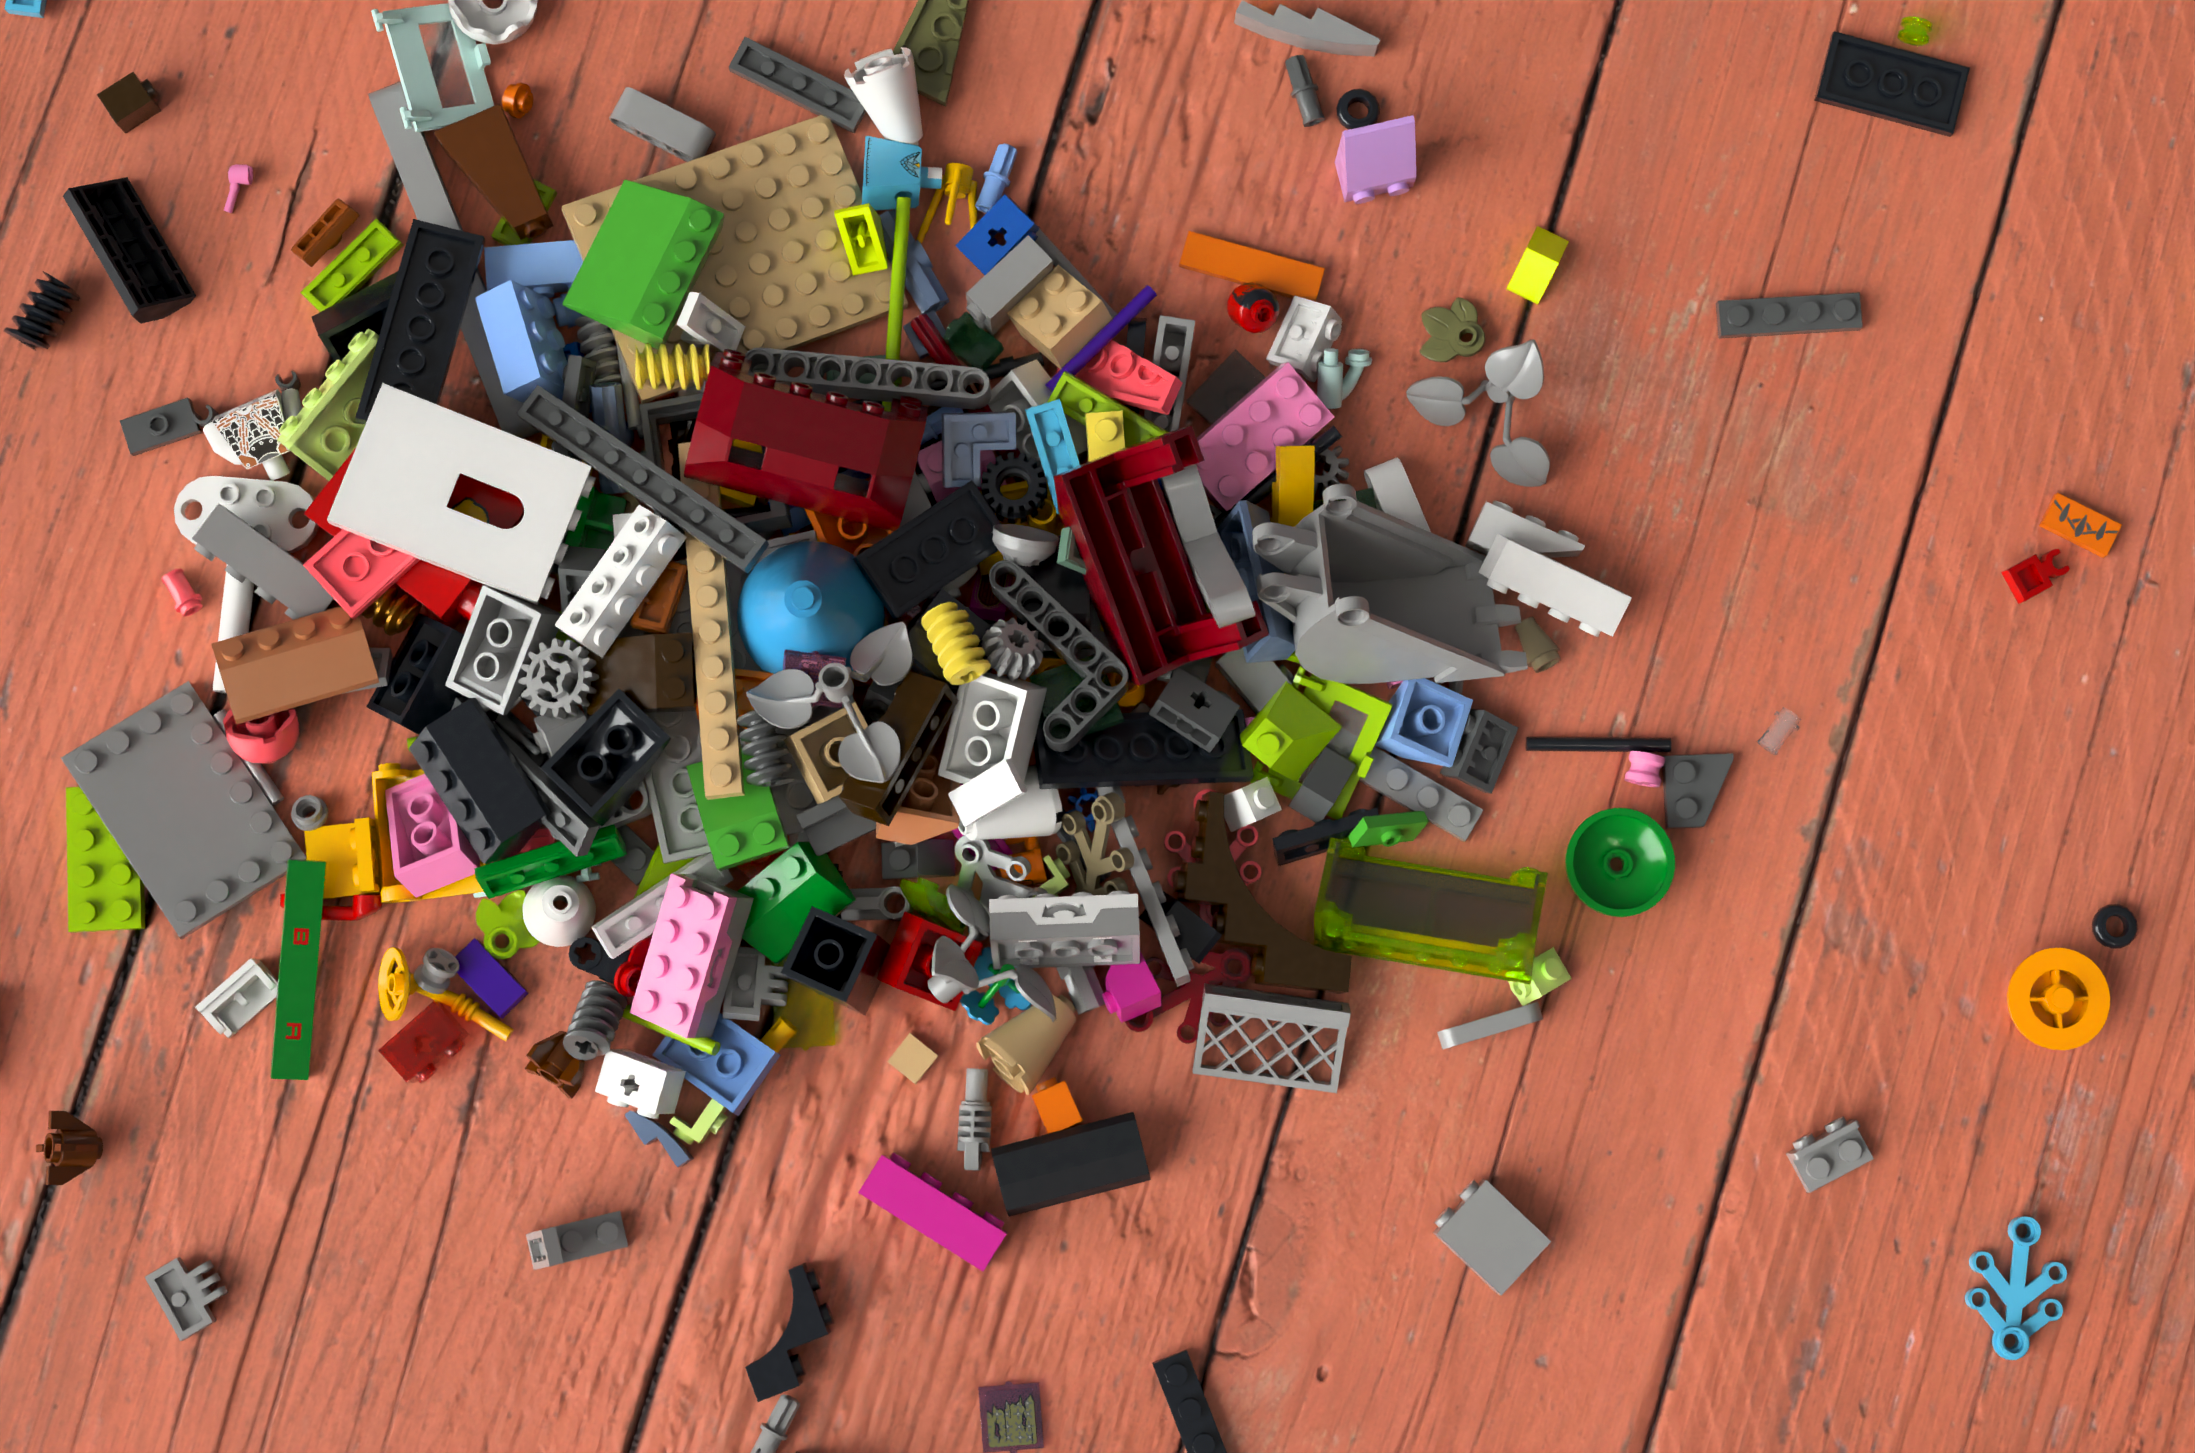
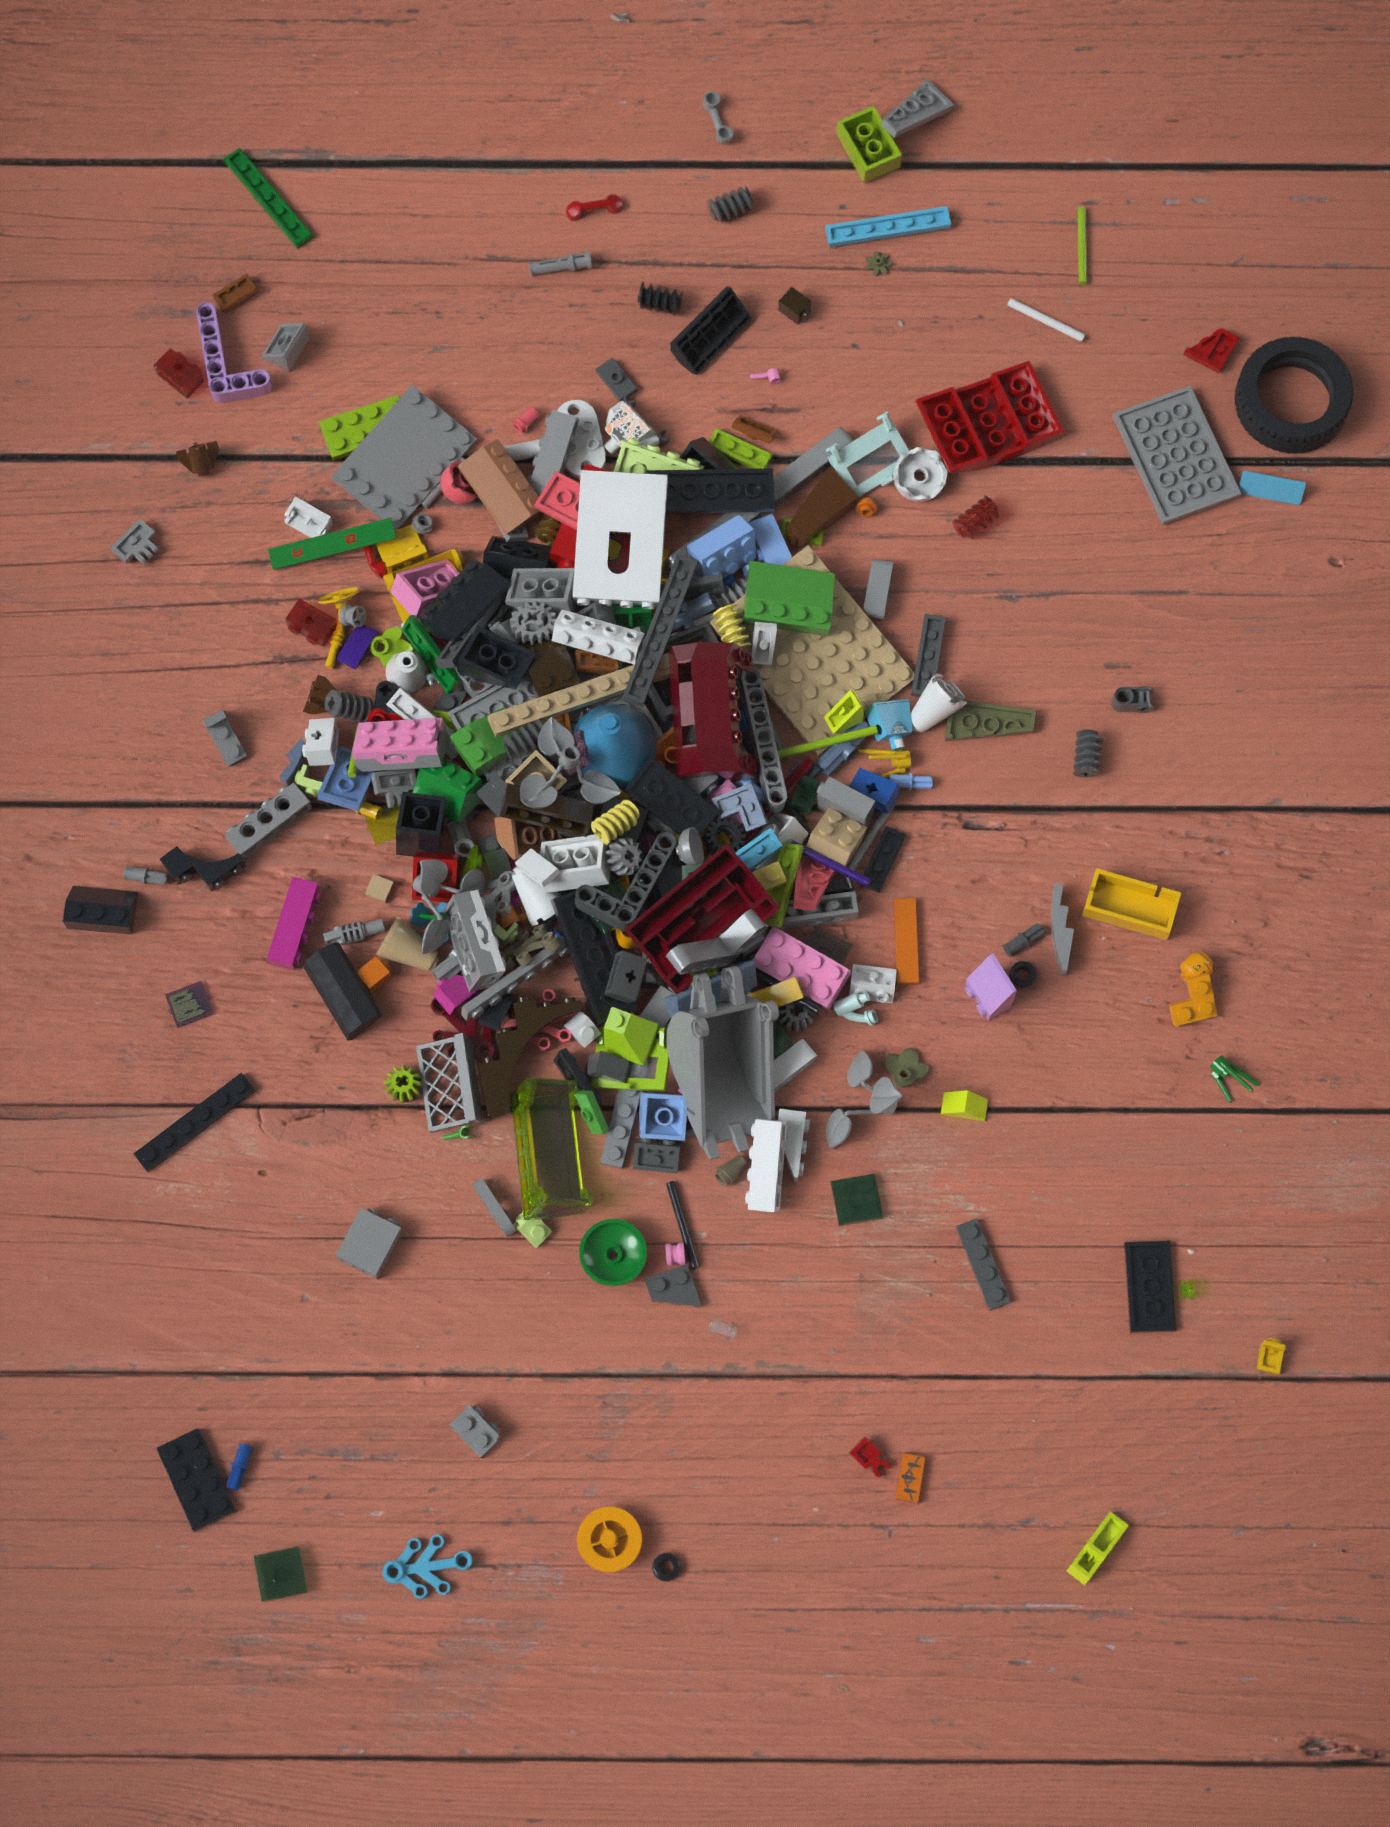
camera: 75 degrees right, 10 degrees down
(776, 1254) = (265, 832): none -> light grey brick
(1106, 258) = (883, 858): none -> black tile
(1253, 307) = (880, 946): red head -> none
(1262, 1112) = (401, 1076): none -> lime gear
(1355, 1041) = (463, 1133): none -> bright green hand
(1635, 470) = (856, 1200): none -> clear green plate

